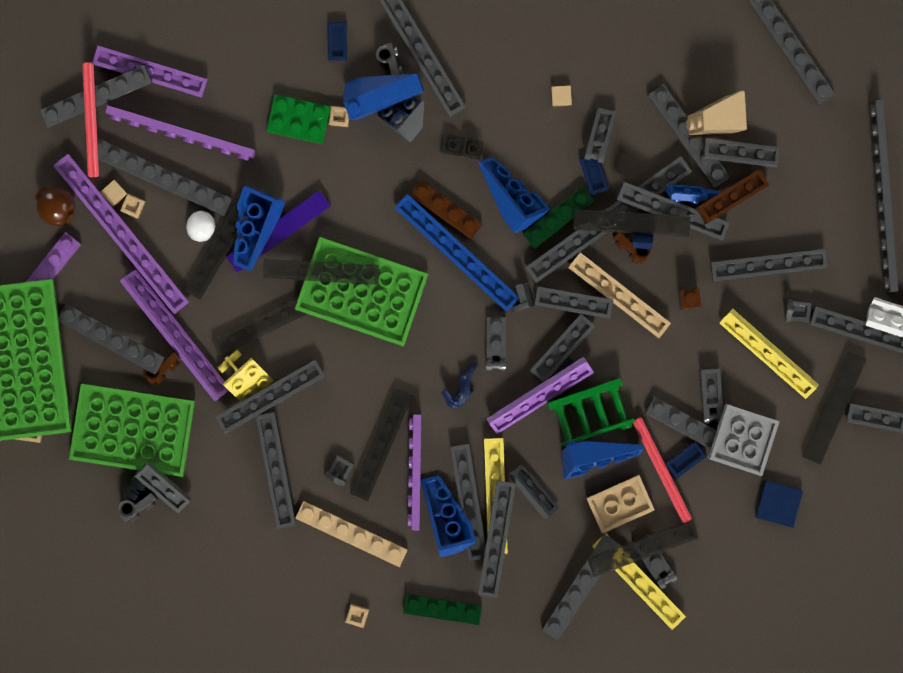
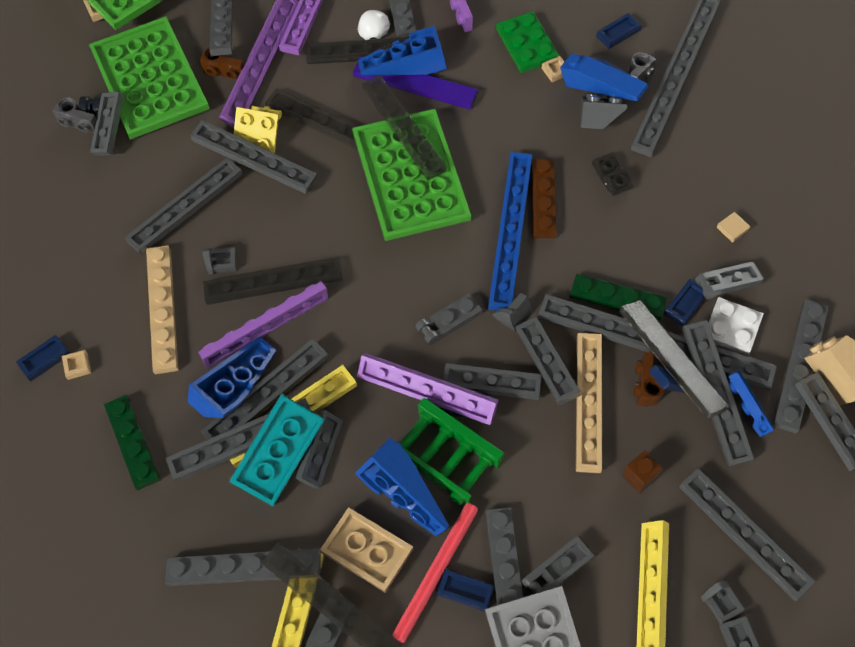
camera: 50 degrees right, 25 degrees down
(336, 635) = (42, 358): none -> dark blue tile
(464, 390) = (379, 319): dark blue piece -> none
(515, 202) = (601, 244): blue wedge -> none
(520, 520) = (277, 450): none -> teal tile
(632, 158) = (734, 326): none -> white plate
(732, 196) = (783, 441): reddish brown plate -> none

